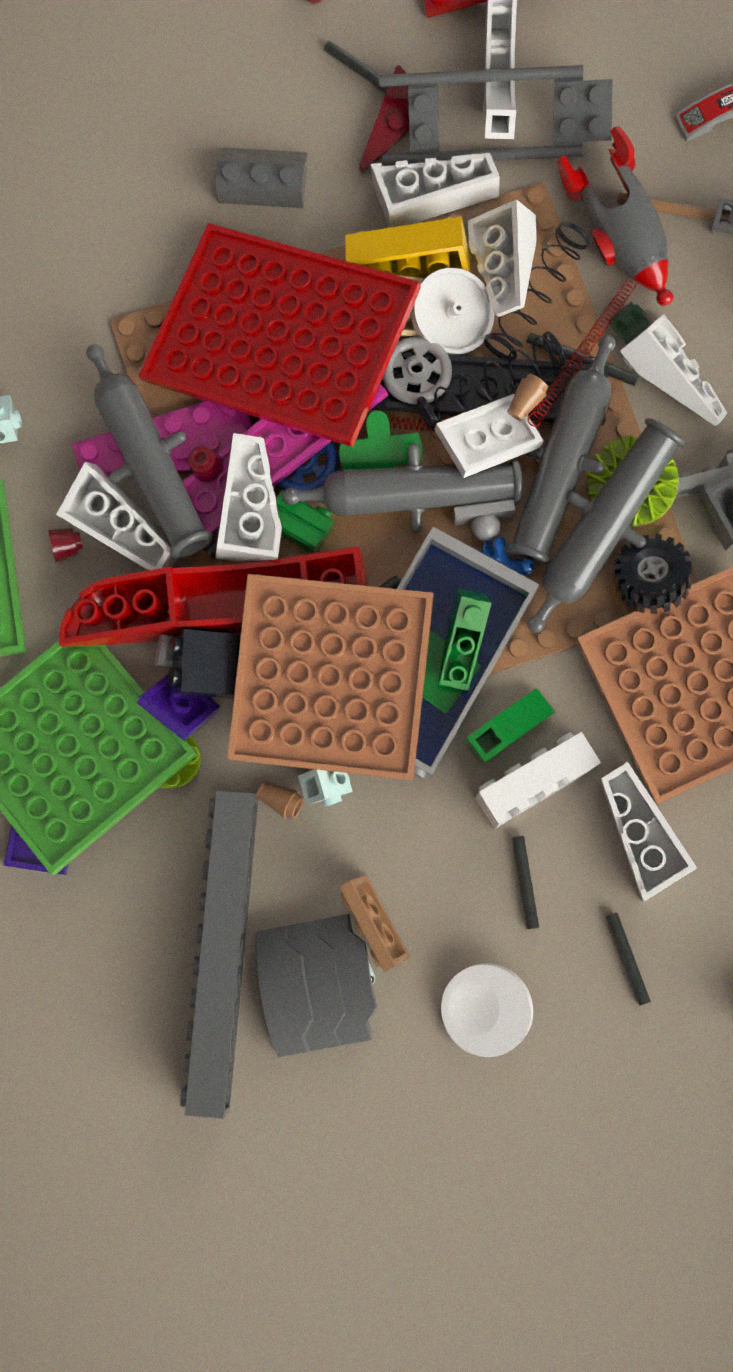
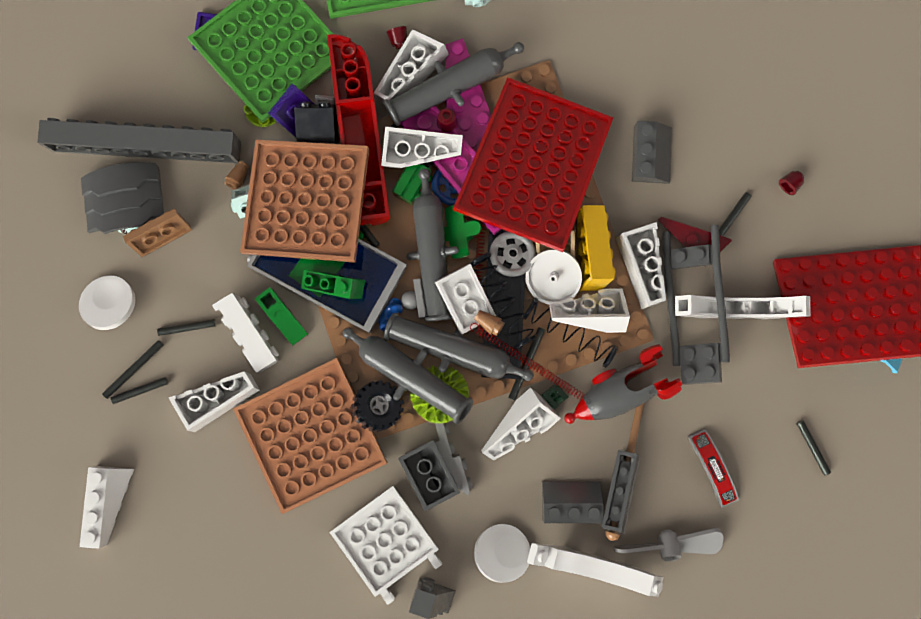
camera: 85 degrees right, 5 degrees up
(594, 970) = (132, 369): none -> pearl dark grey bar

